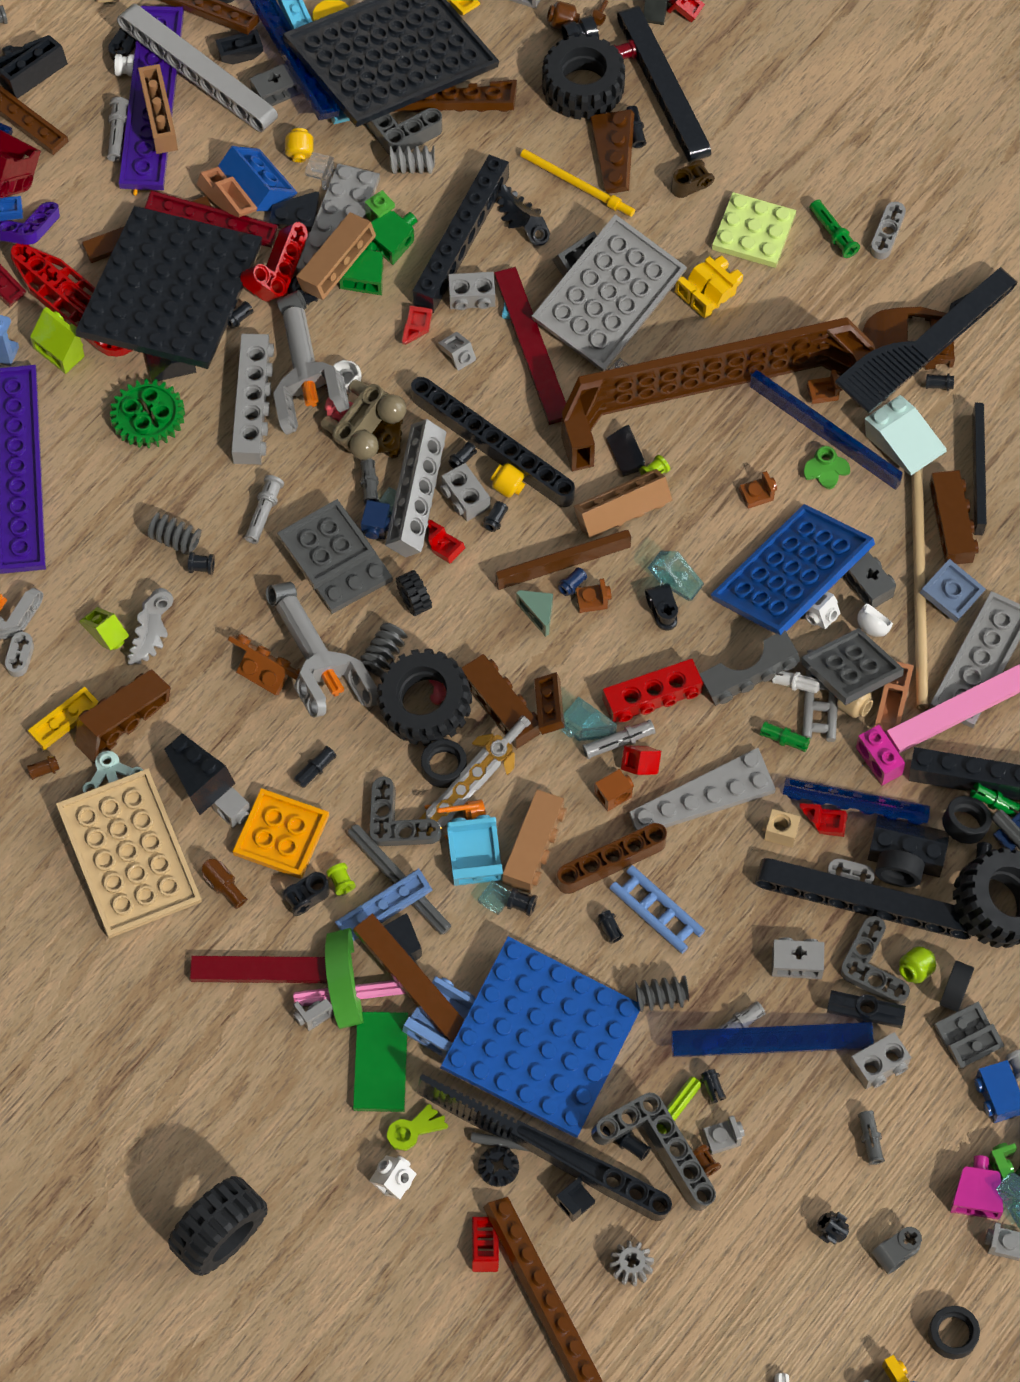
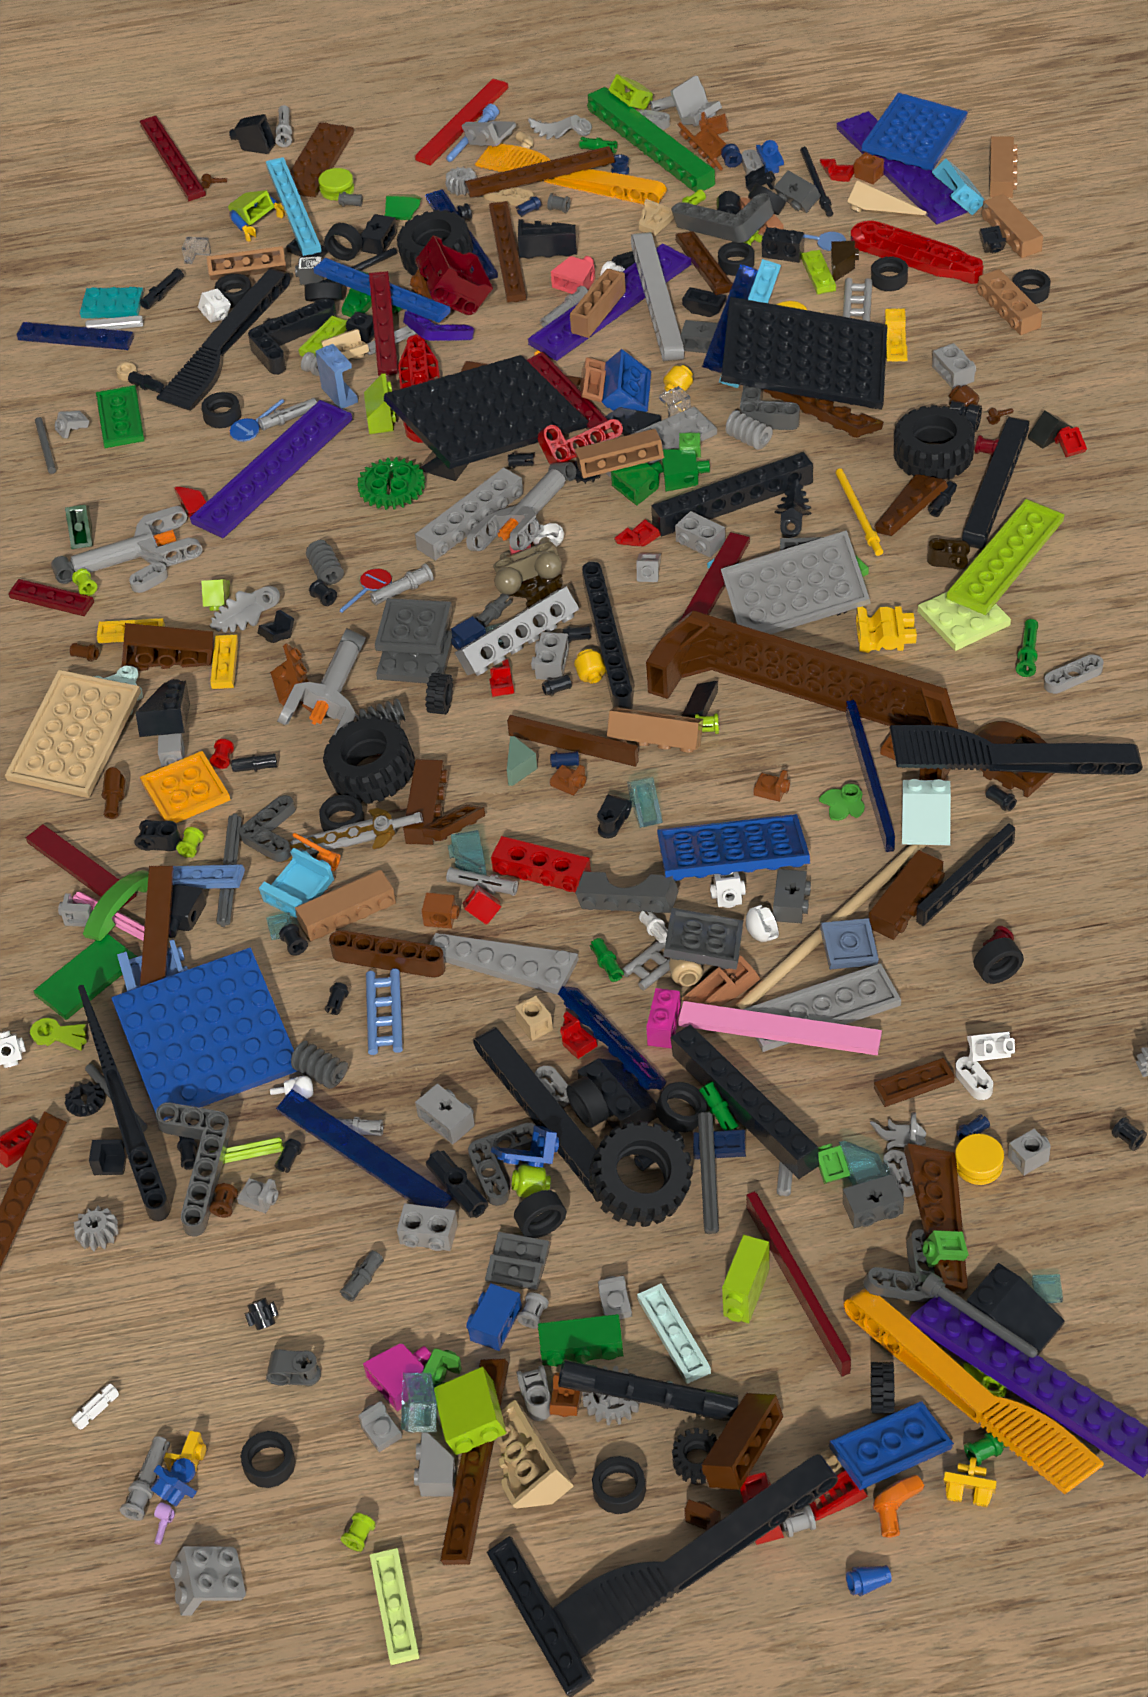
camera: 45 degrees right, 15 degrees down
(91, 88) = (573, 273): none -> coral torso
(185, 690) = (224, 661): none -> yellow plate
(198, 625) = (279, 629): none -> black bracket
(230, 519) = (370, 580): none -> red piece
(279, 778) = (222, 752): none -> red bush
(660, 1026) = (301, 1084): none -> white piece
(743, 153) = (1005, 557): none -> lime plate
(906, 937) = (542, 1149): none -> blue bracket

